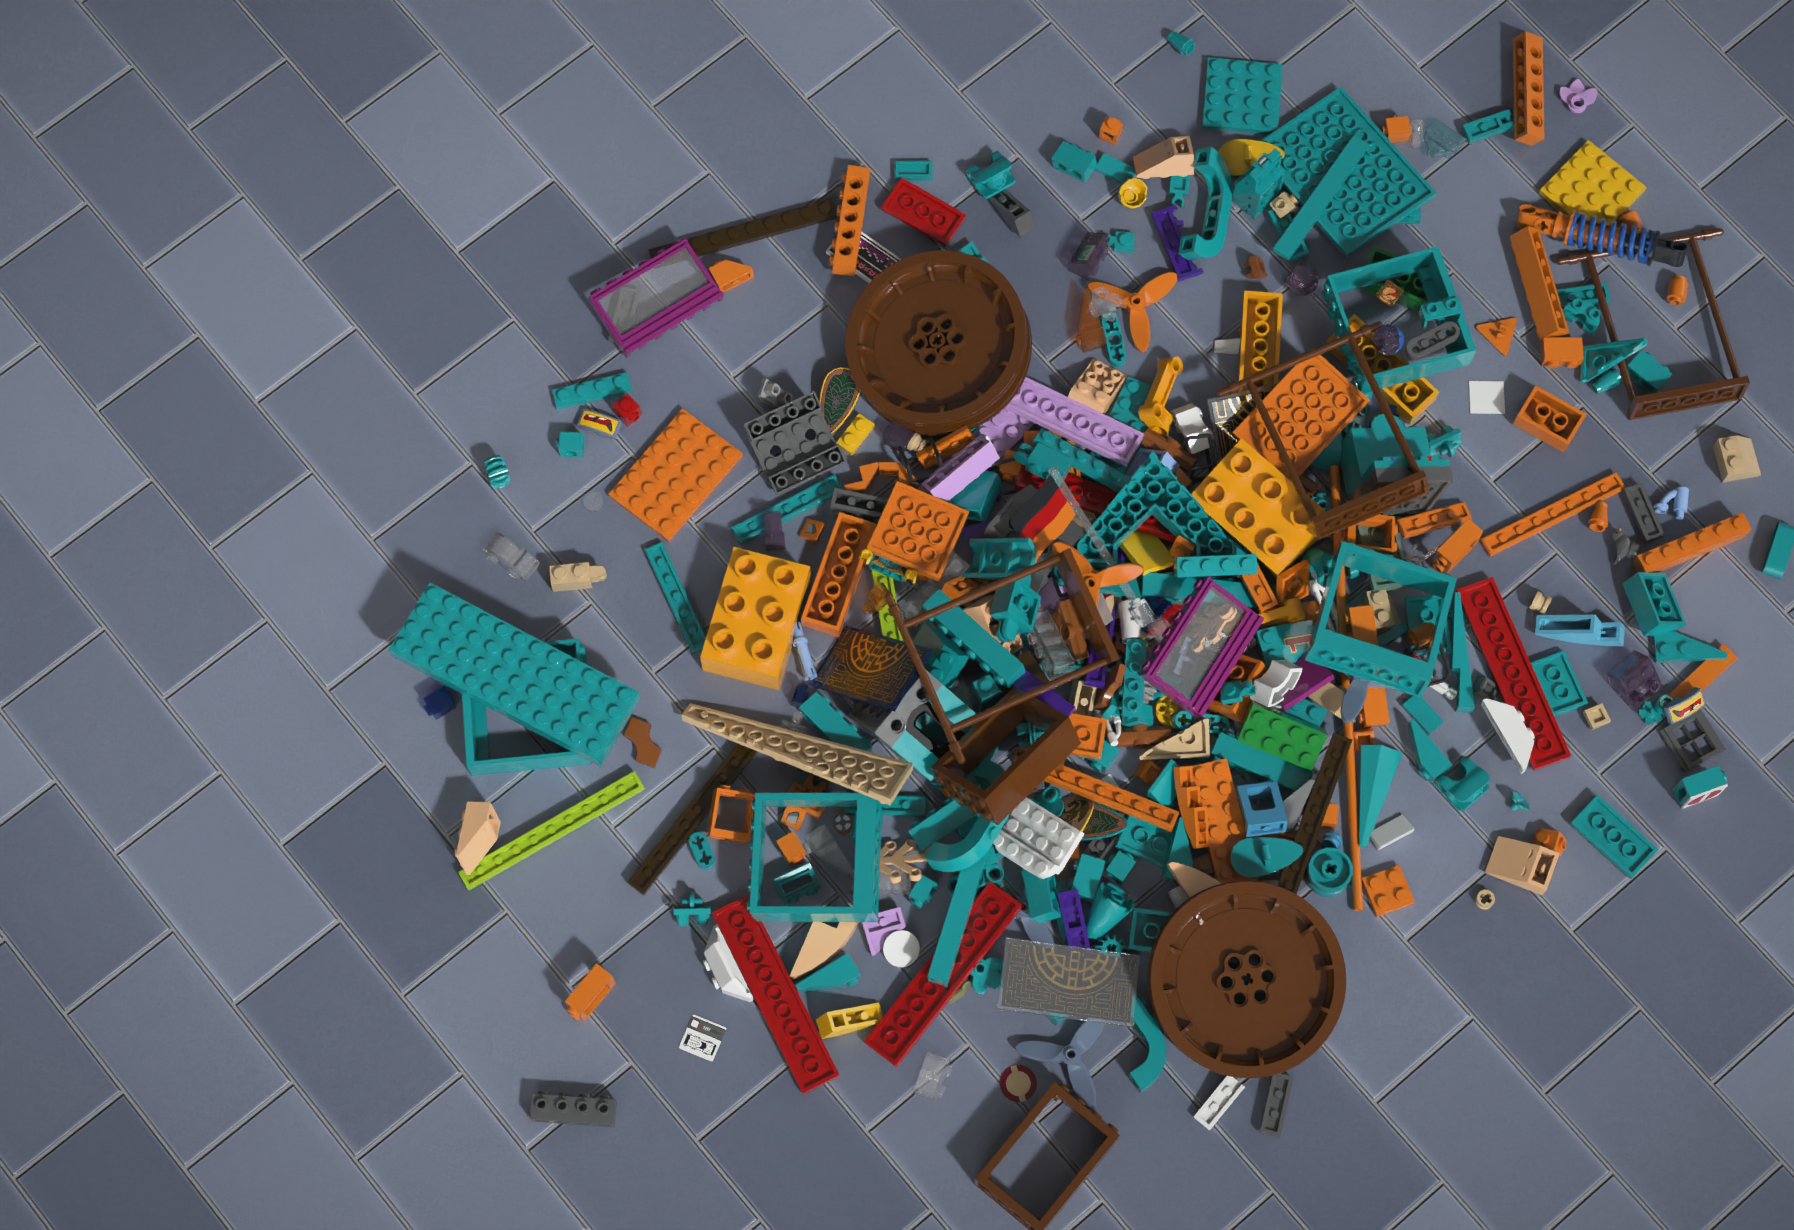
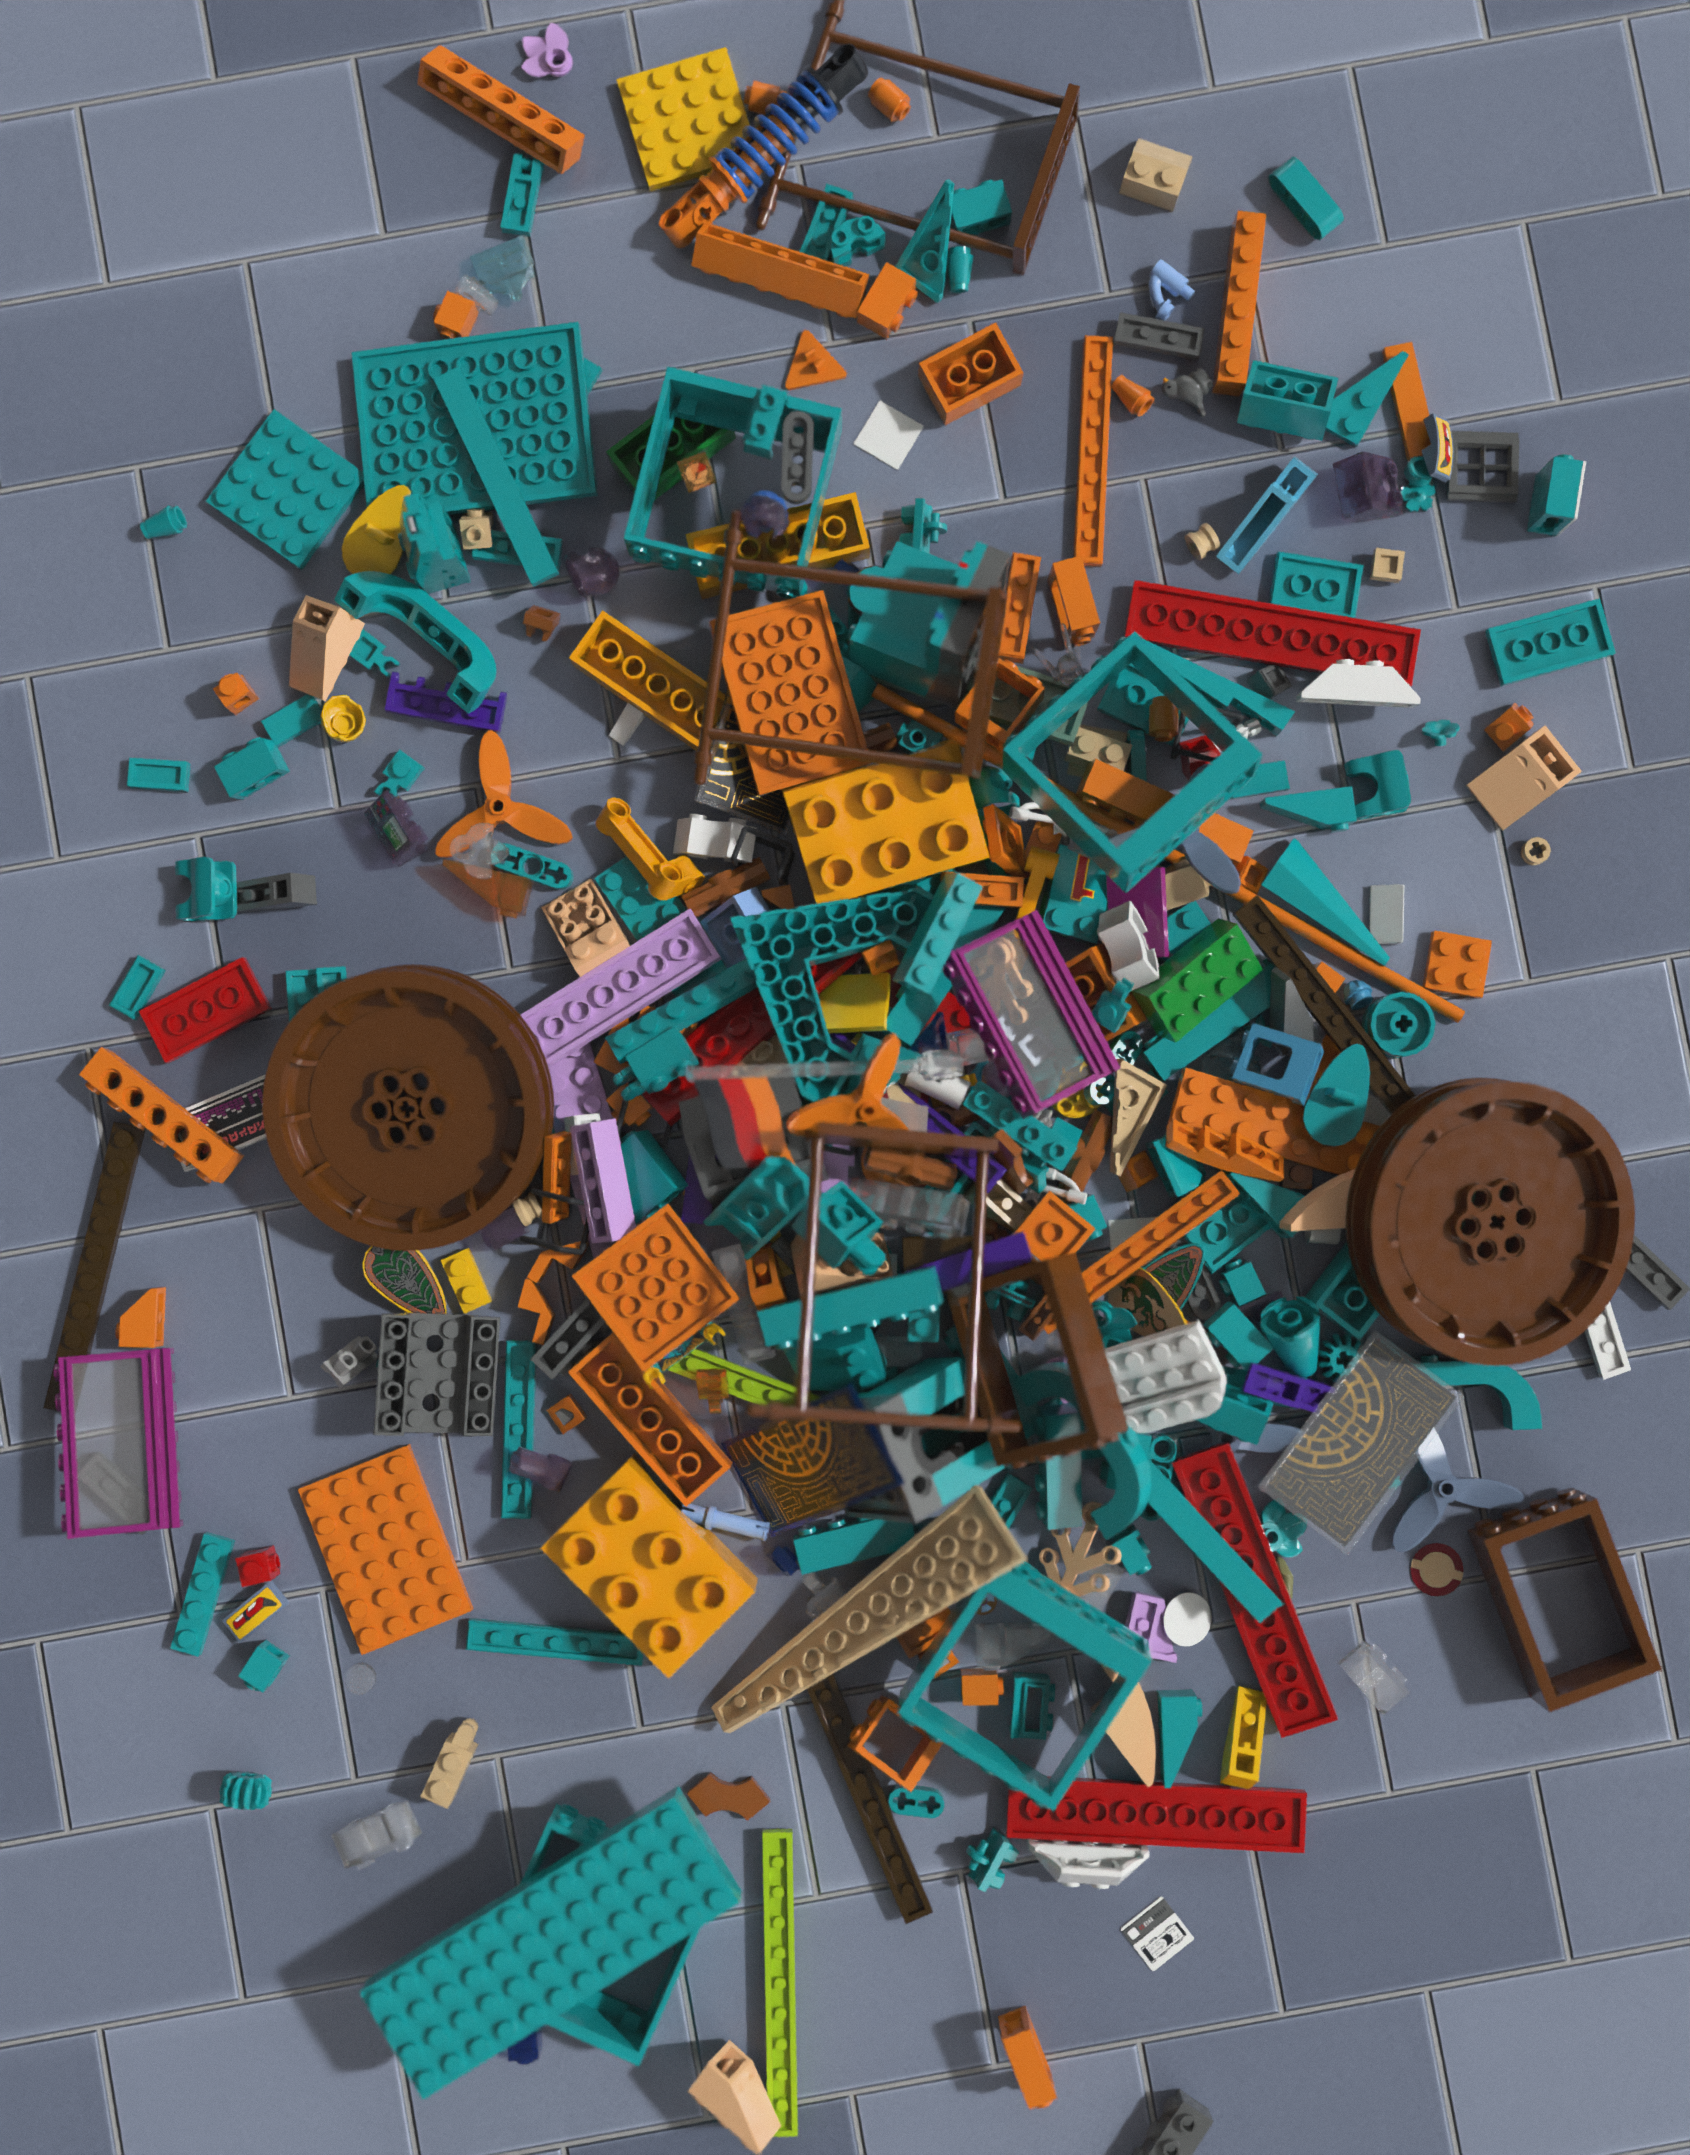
camera: 55 degrees left, 15 degrees up
(1039, 116) = (158, 774): none -> teal tile

